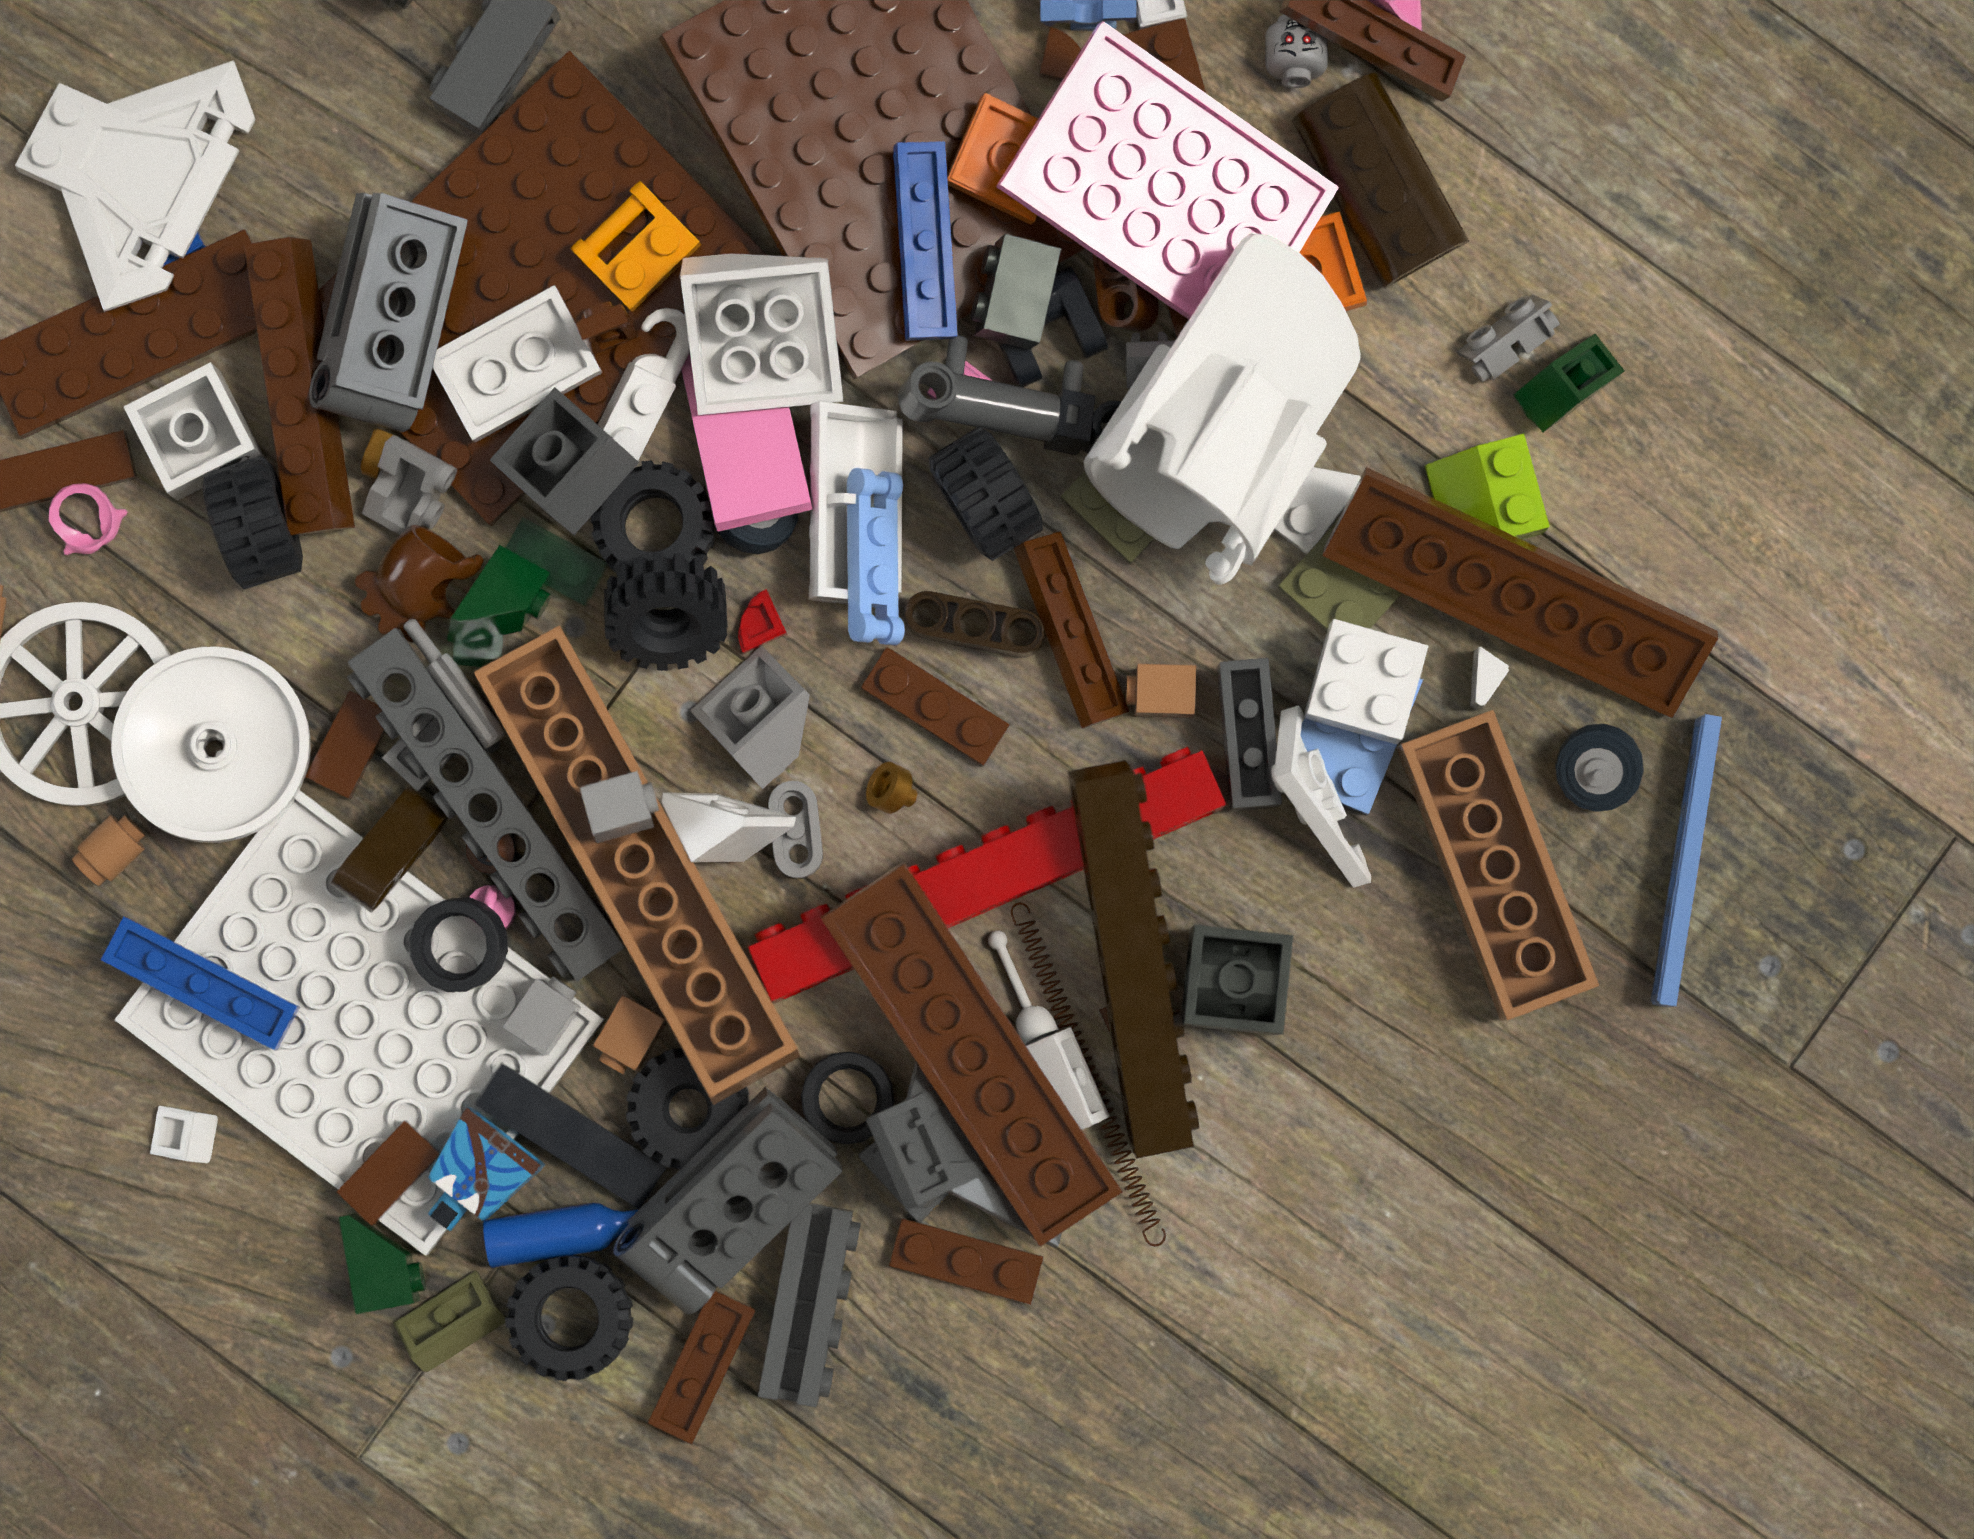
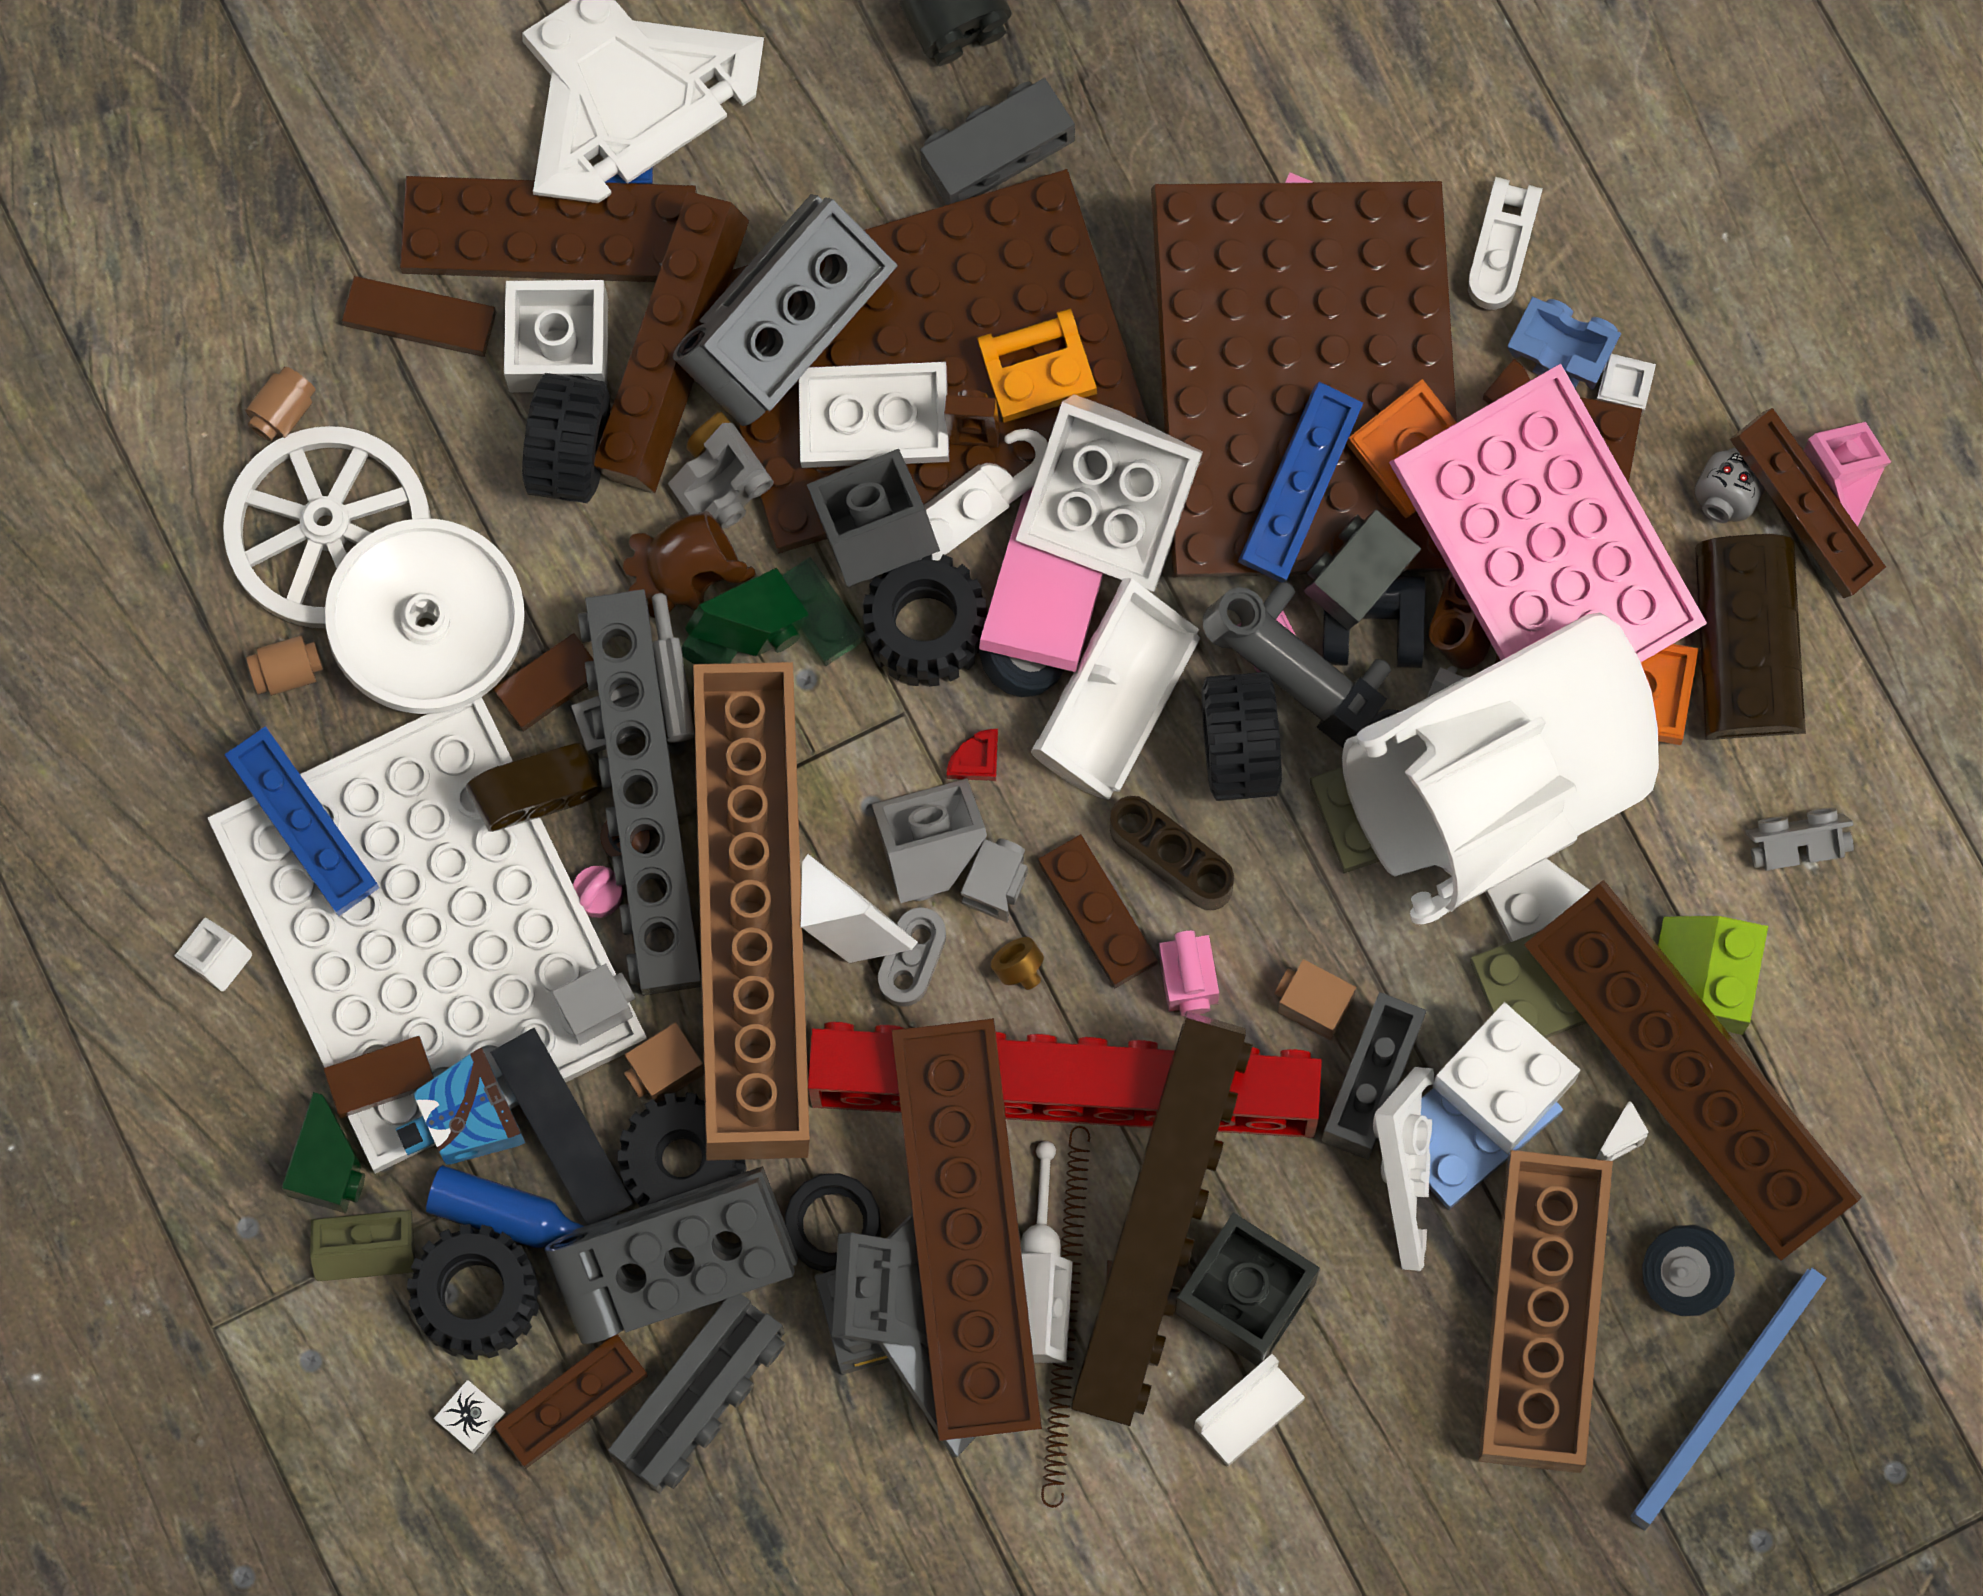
camera: 30 degrees right, 10 degrees down
(108, 516) = (399, 381): bright pink piece -> none
(421, 944) = (517, 886): black tyre -> none
(619, 806) = (761, 842): light grey brick -> none
(621, 1422) = (470, 1416): none -> white tile
(665, 635) = (880, 720): black tyre -> none
(833, 723) = (995, 878): none -> light grey window
(873, 557) = (1109, 744): light blue plate -> none
(966, 1261) = (865, 1430): reddish brown plate -> none
(1044, 725) = (1189, 973): none -> bright pink brick
(1071, 629) = (1258, 902): reddish brown plate -> none
(1286, 1078) = (1248, 1411): none -> white panel
(1568, 383) = (1834, 905): dark green slope -> none

